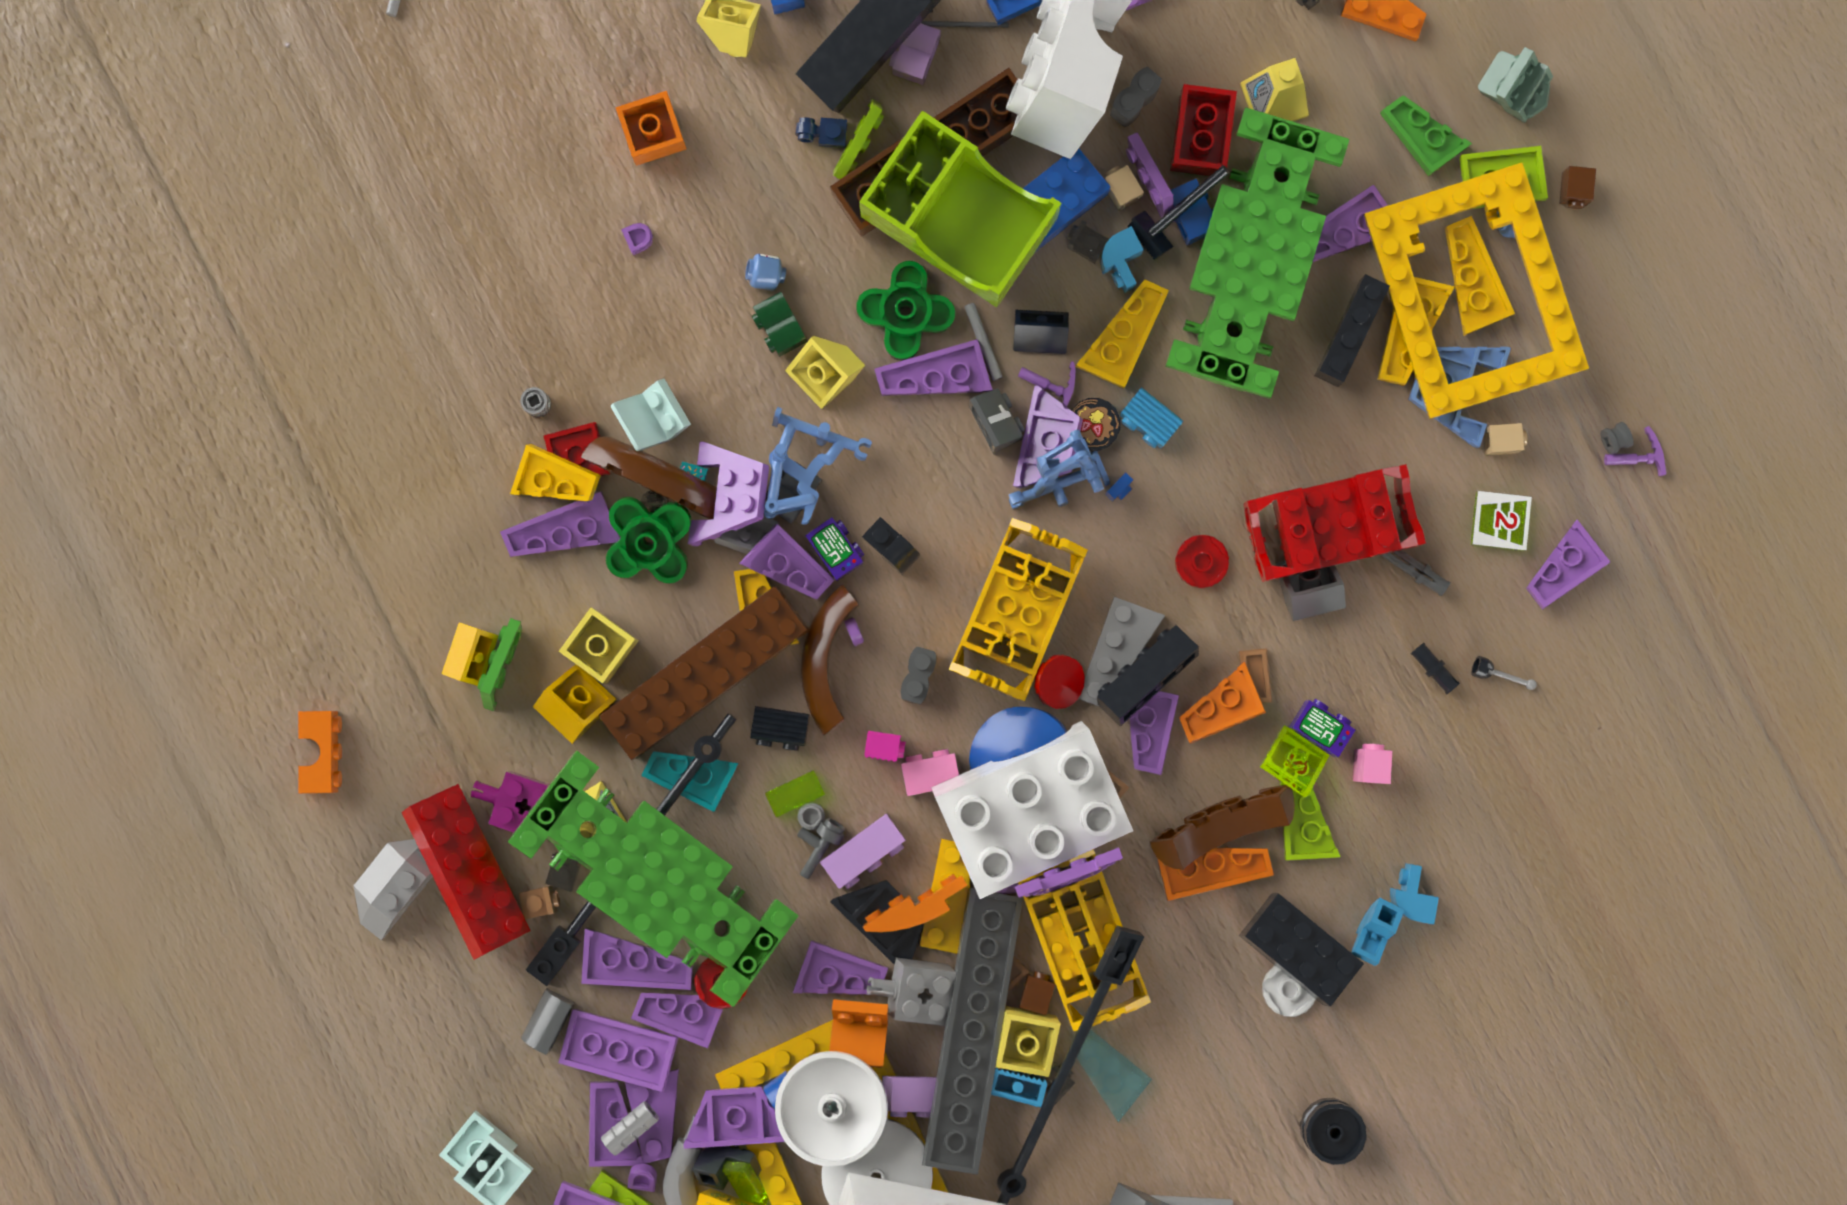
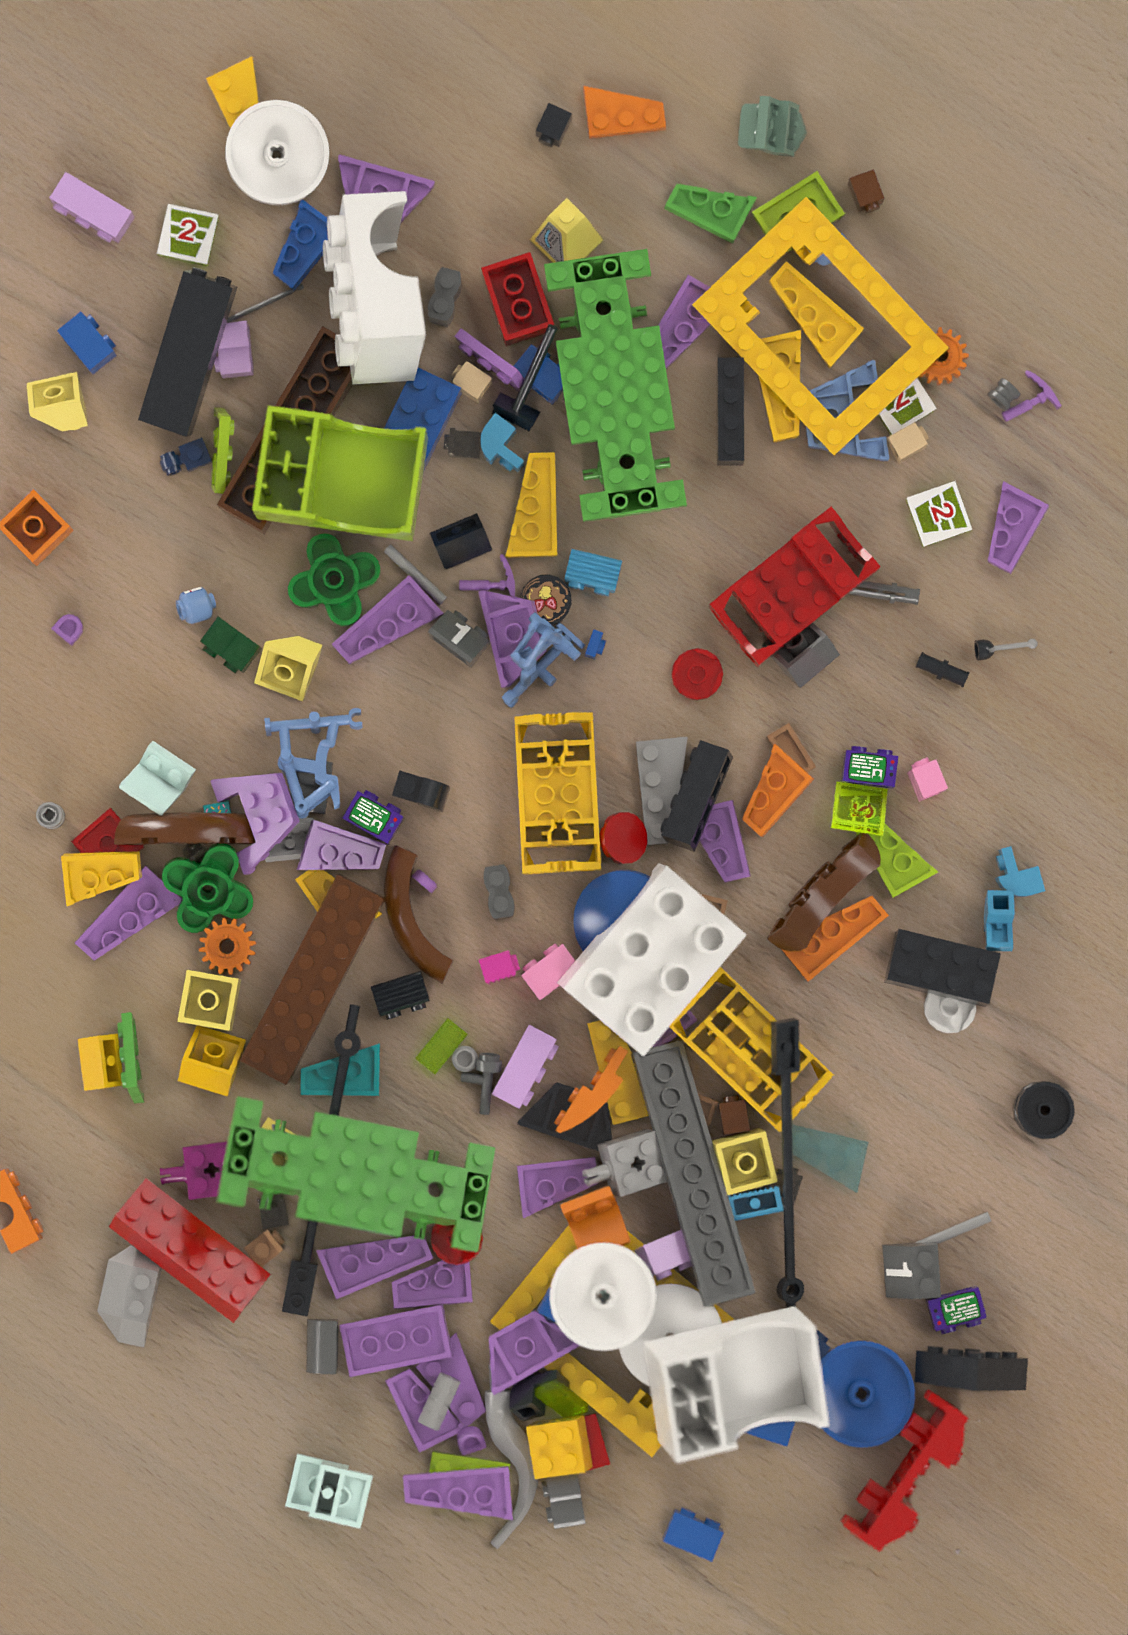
camera: 25 degrees left, 0 degrees up
(655, 603) = (241, 951): none -> orange gear
(1078, 871) = (717, 991): medium lavender wing -> none
(1519, 407) = (907, 408): none -> tile
(1578, 388) = (946, 369): none -> orange gear

